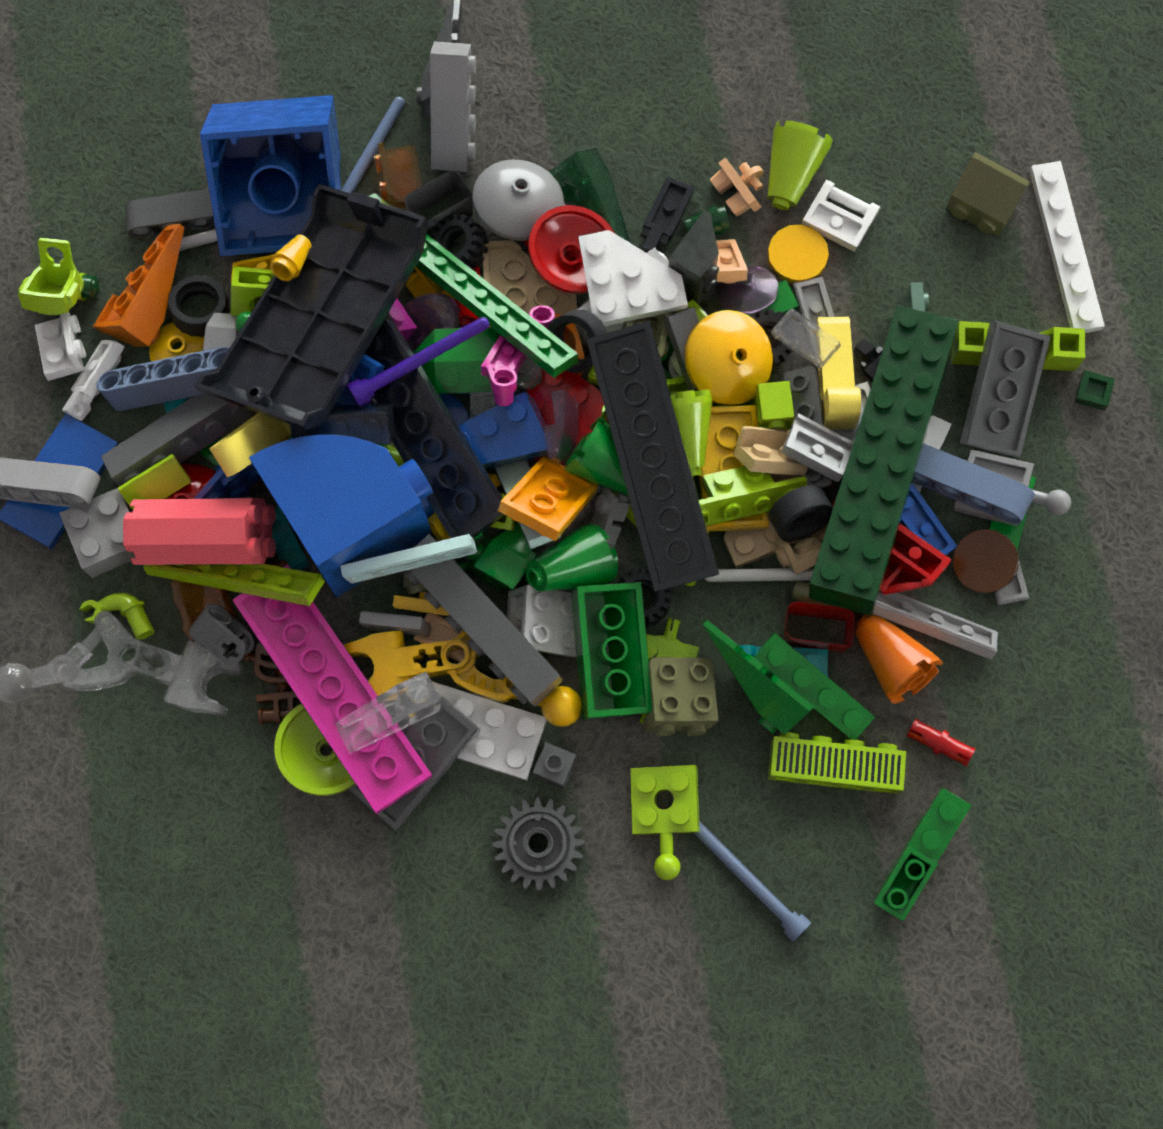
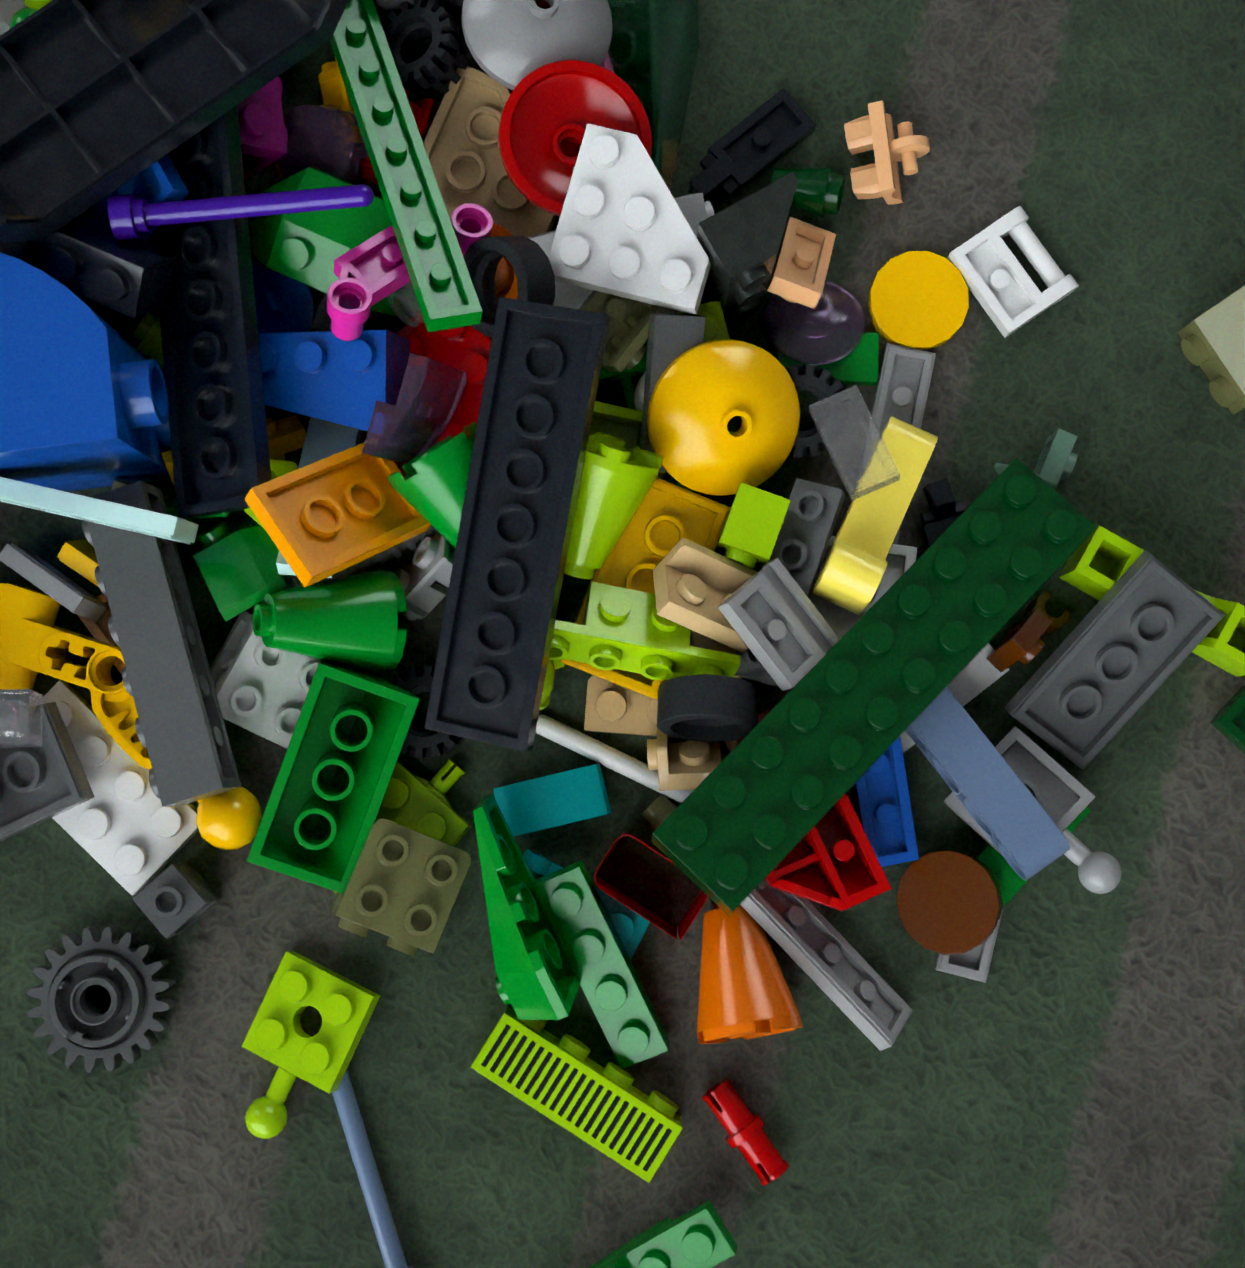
camera: 25 degrees right, 10 degrees up
(741, 610) = (554, 800): none -> teal slope
(794, 161) = (983, 155): lime cone -> none
(951, 401) = (1023, 639): none -> reddish brown plate

